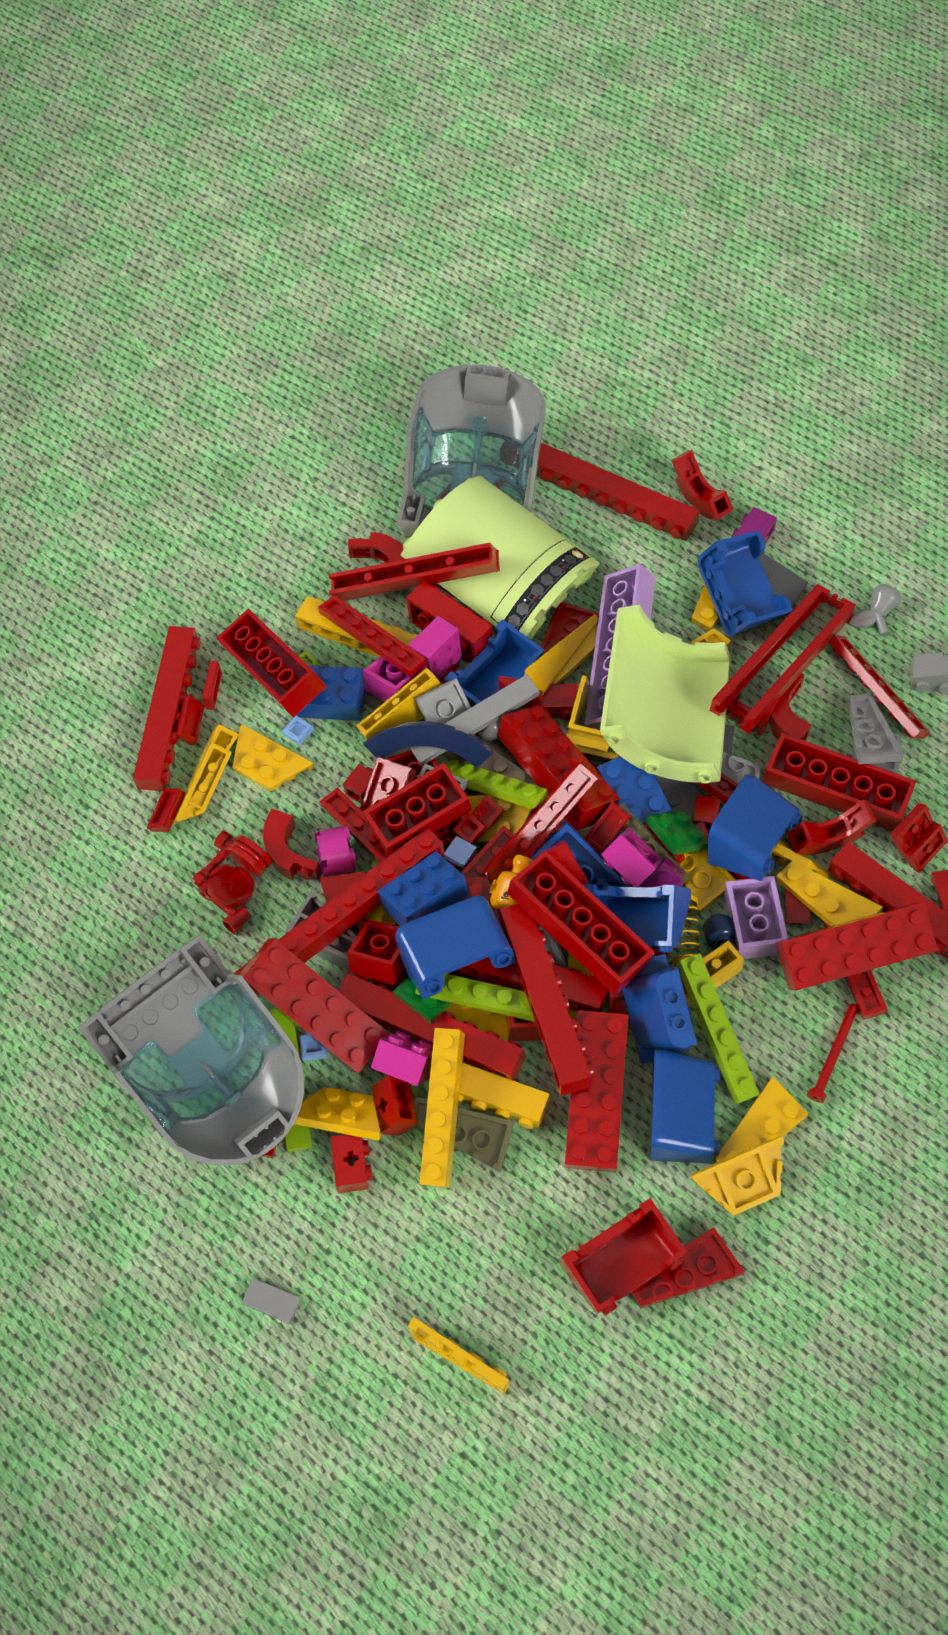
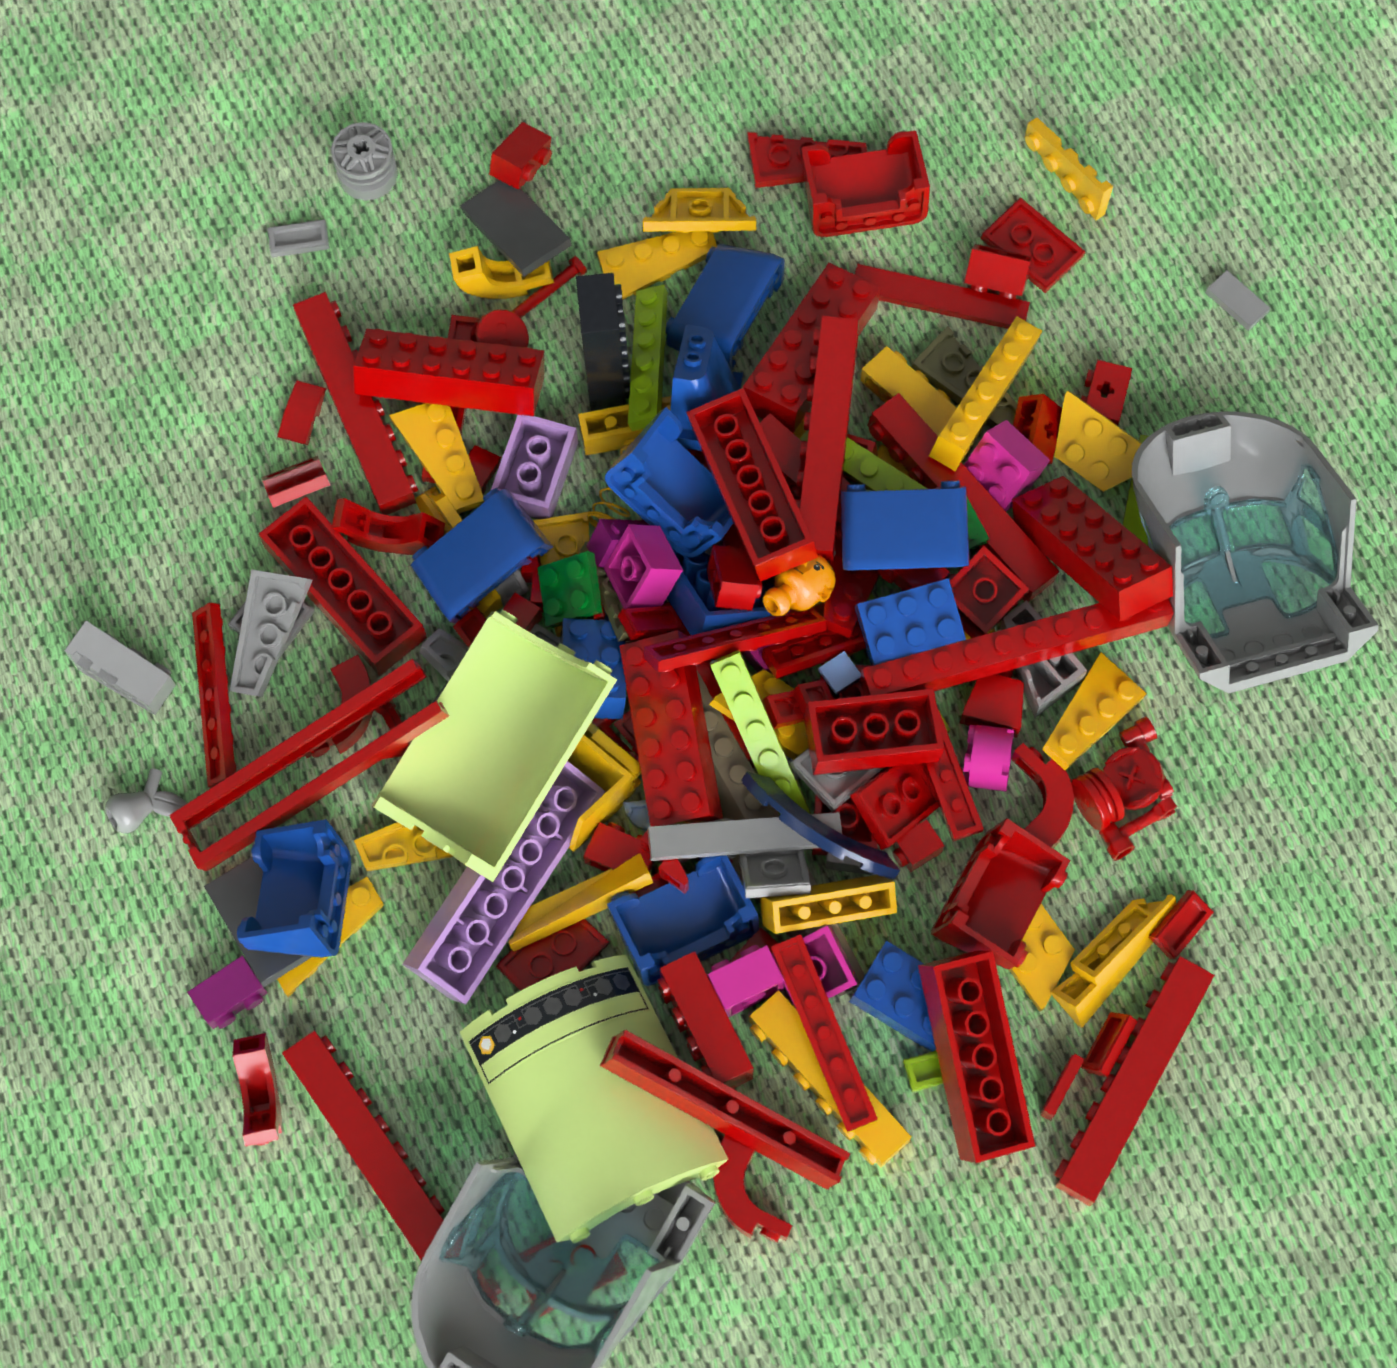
camera: 160 degrees left, 10 degrees up
(274, 908) = (1095, 708): none -> yellow wing
(294, 764) = (1000, 893): none -> red windscreen
(461, 1278) = (1031, 234): none -> red tile
(478, 1230) = (998, 271): none -> red brick
(517, 1196) = (944, 297): none -> red tile
(718, 930) = (583, 470): dark blue head -> none
(749, 984) = (603, 340): none -> black brick
(839, 1002) = (500, 328): none -> red head
(872, 1051) = (494, 278): none -> yellow arch
(883, 1100) = (516, 226): none -> dark grey tile
(915, 1162) = (520, 156): none -> red brick

